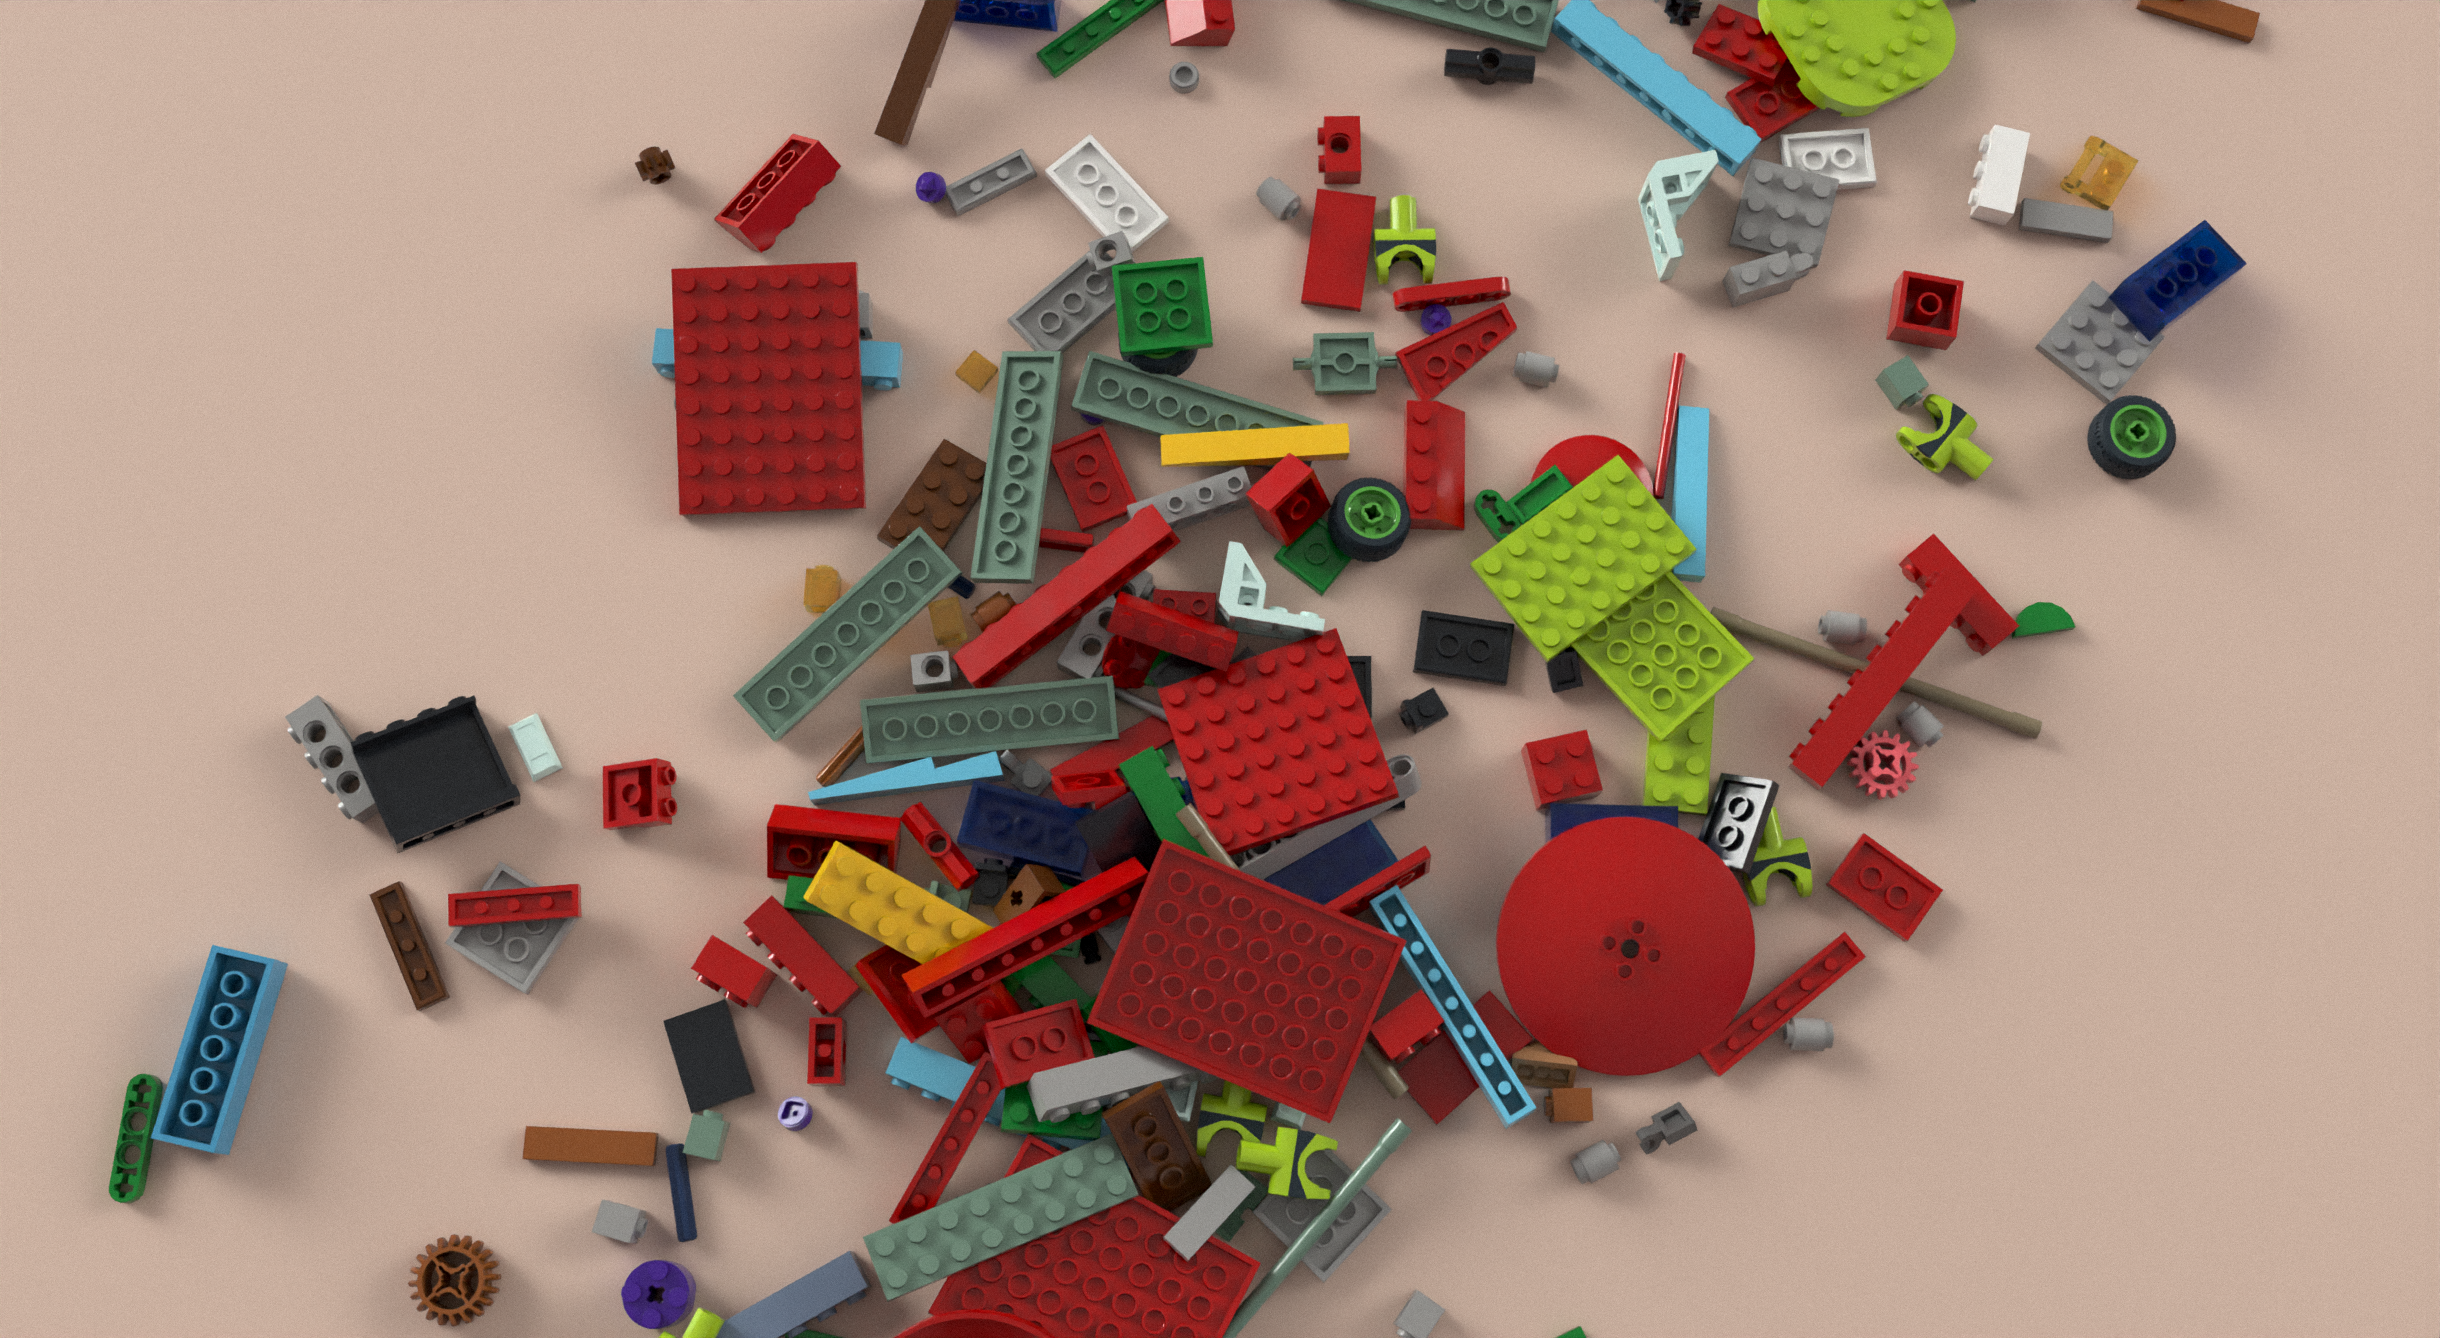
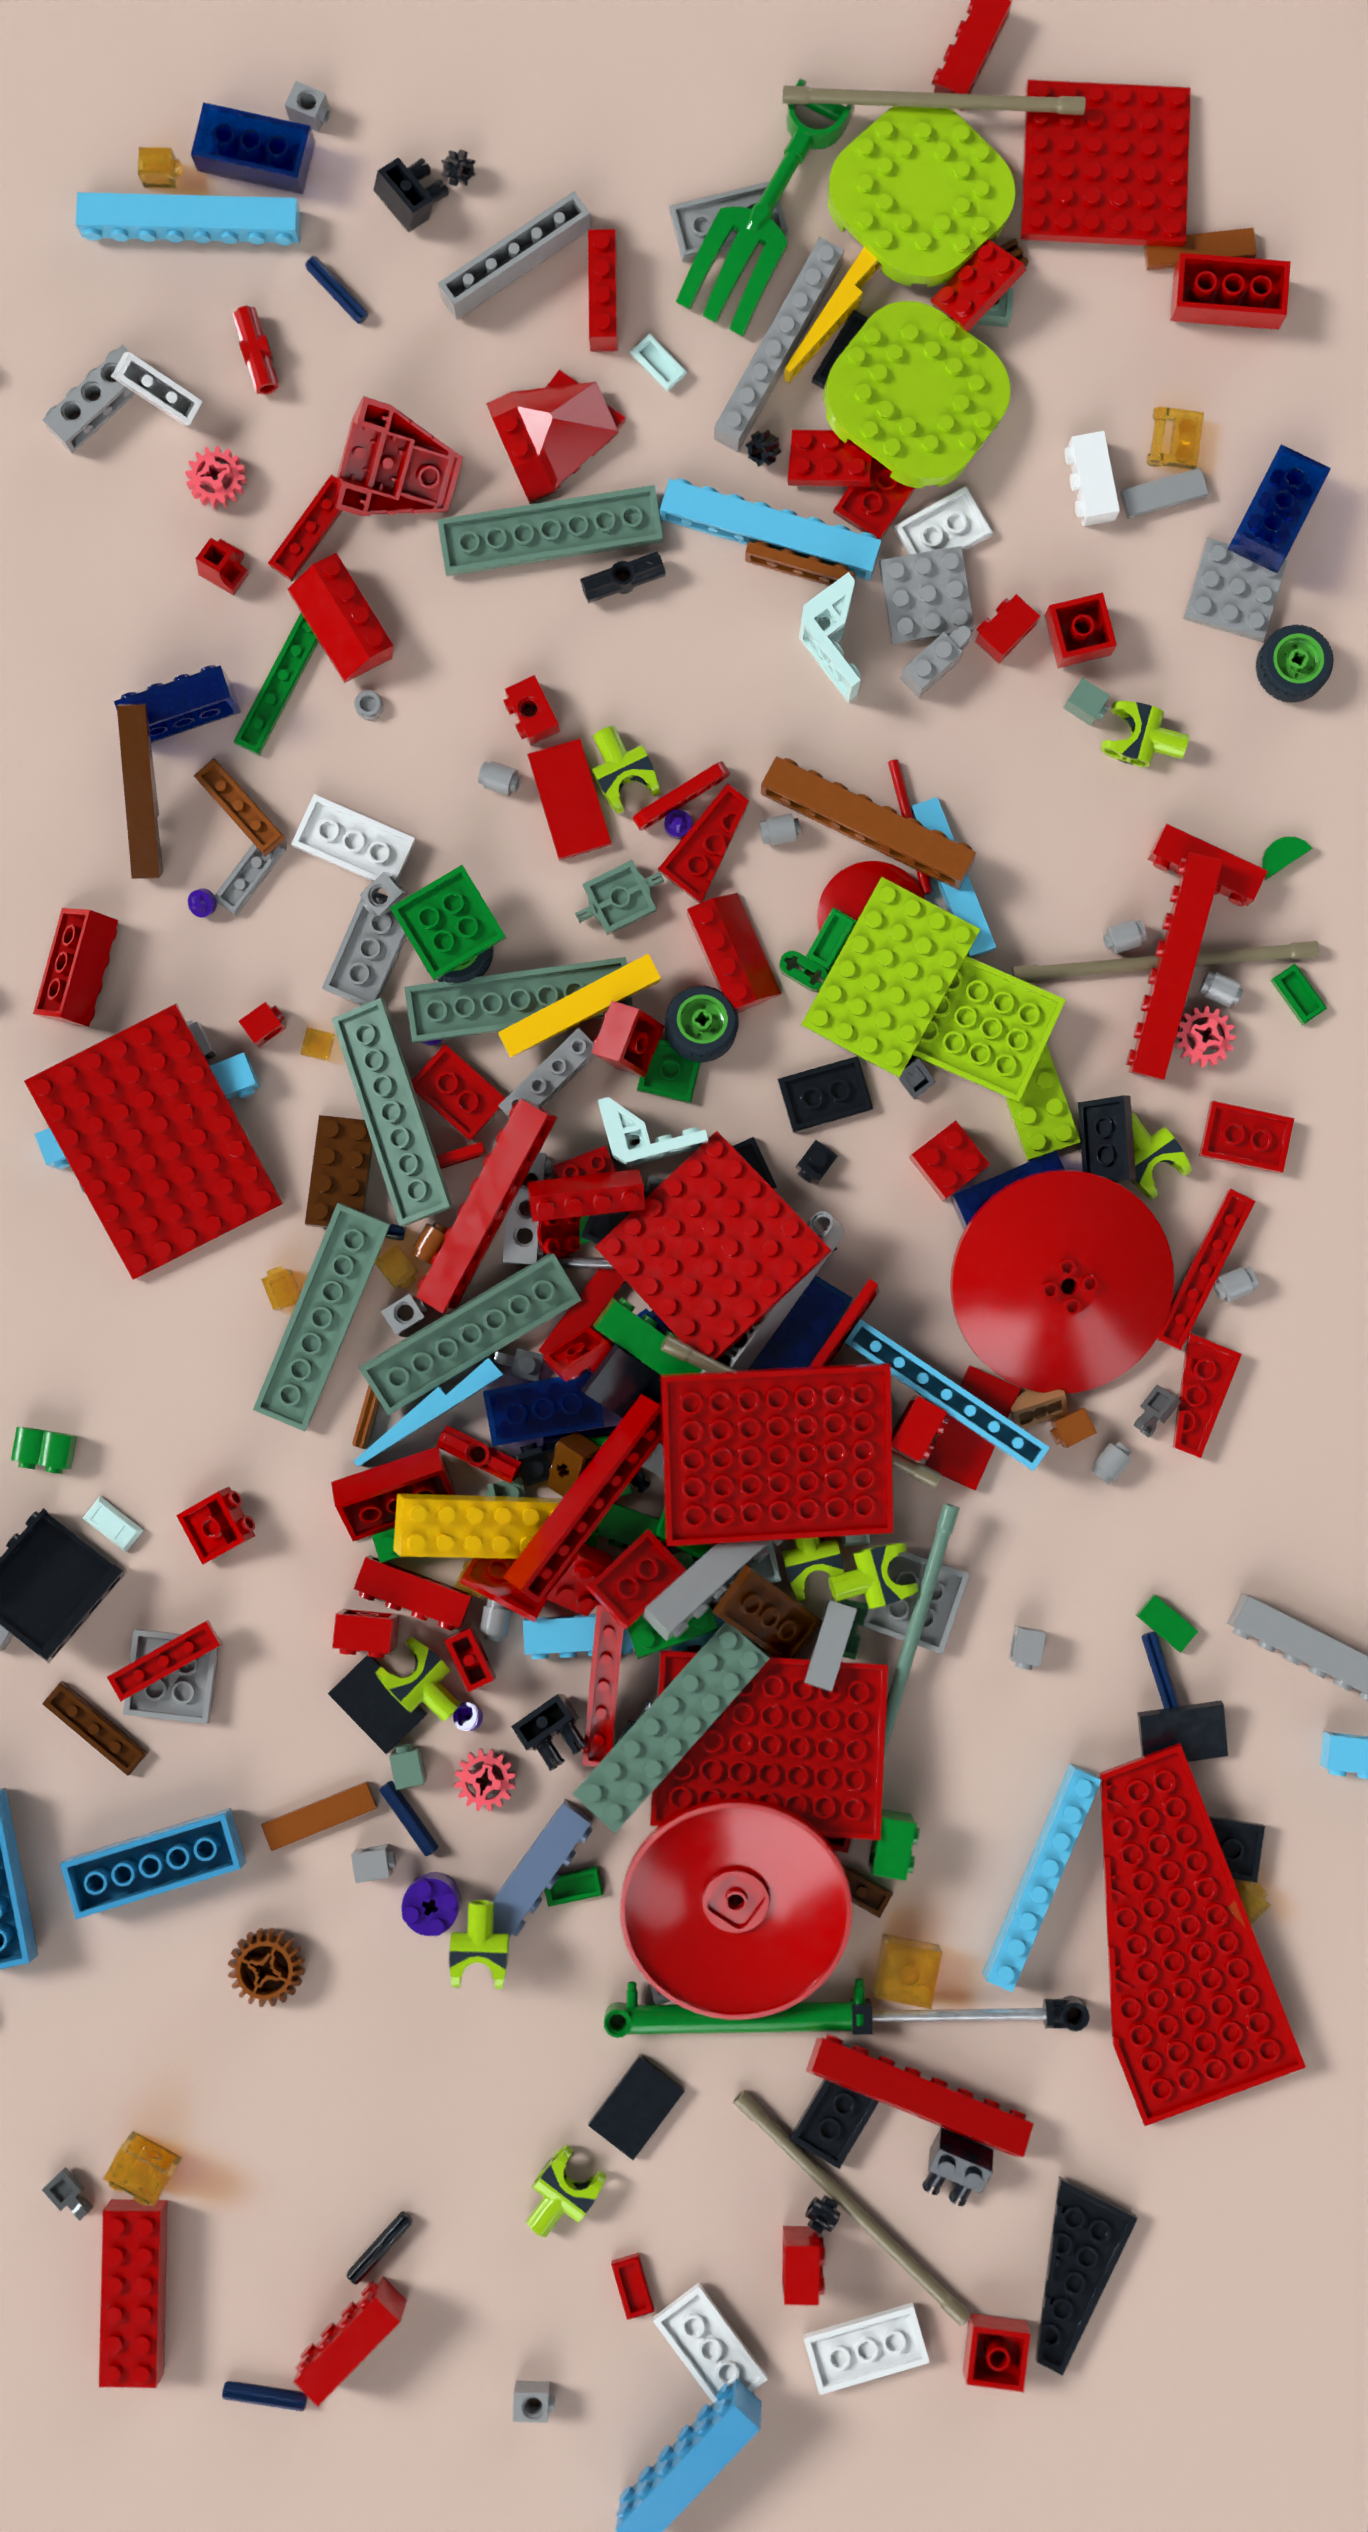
camera: 20 degrees left, 10 degrees up
(395, 1111) = (153, 1863): none -> dark azure brick
(505, 638) = (43, 1448): none -> green brick
(764, 1055) = (422, 1684): none -> lime connector
(771, 1200) = (497, 1781): none -> coral gear
(872, 1025) = (495, 1621): none -> light grey brick
(873, 1156) = (546, 1721): none -> black brick
(932, 326) = (263, 1023): none -> red brick
(1012, 115) = (239, 807): none -> dark orange tile
(1628, 400) = (868, 822): none -> dark orange brick
(1661, 124) = (789, 563): none -> dark orange plate
(1727, 1128) = (1203, 1387): none -> red wing
(1851, 277) = (1007, 628): none -> red brick
(2000, 767) = (1298, 994): none -> green tile
(2212, 59) = (1230, 291): none -> red brick

